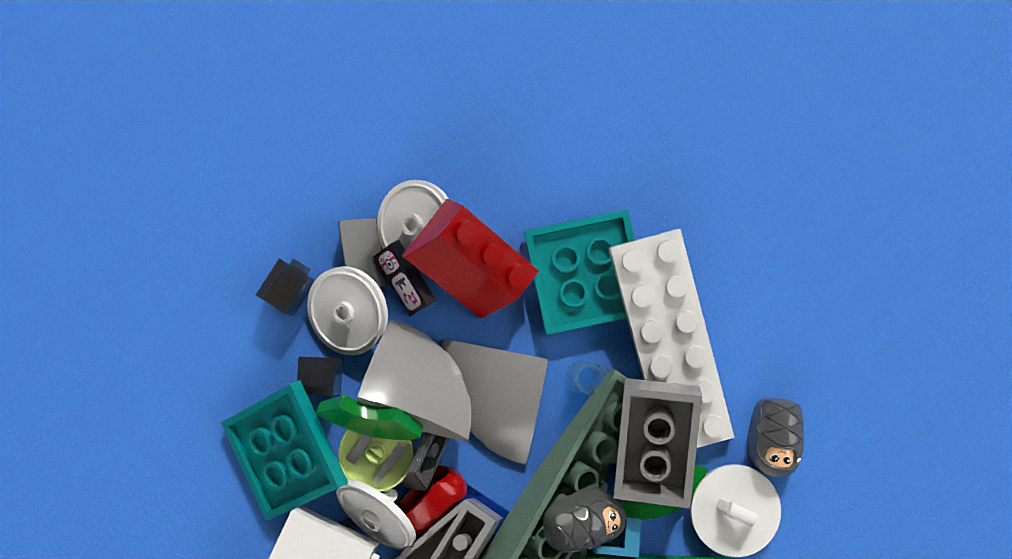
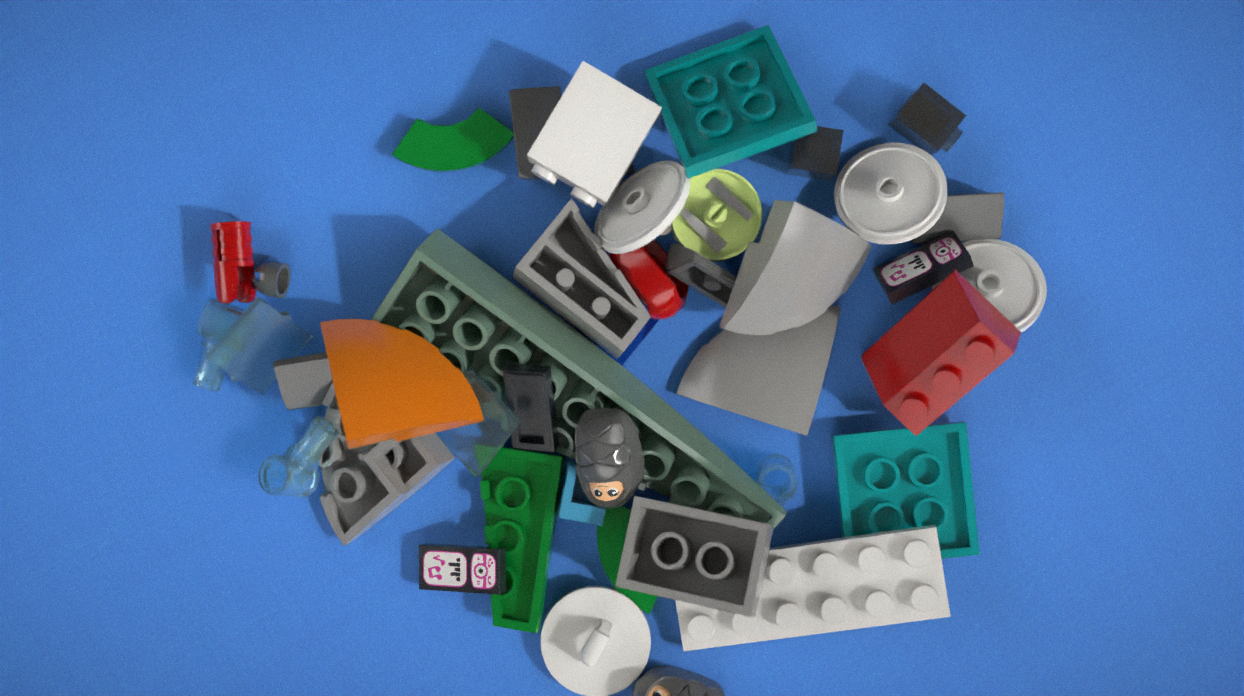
camera: 95 degrees right, 5 degrees up
(370, 420) = (761, 211): green tile -> none

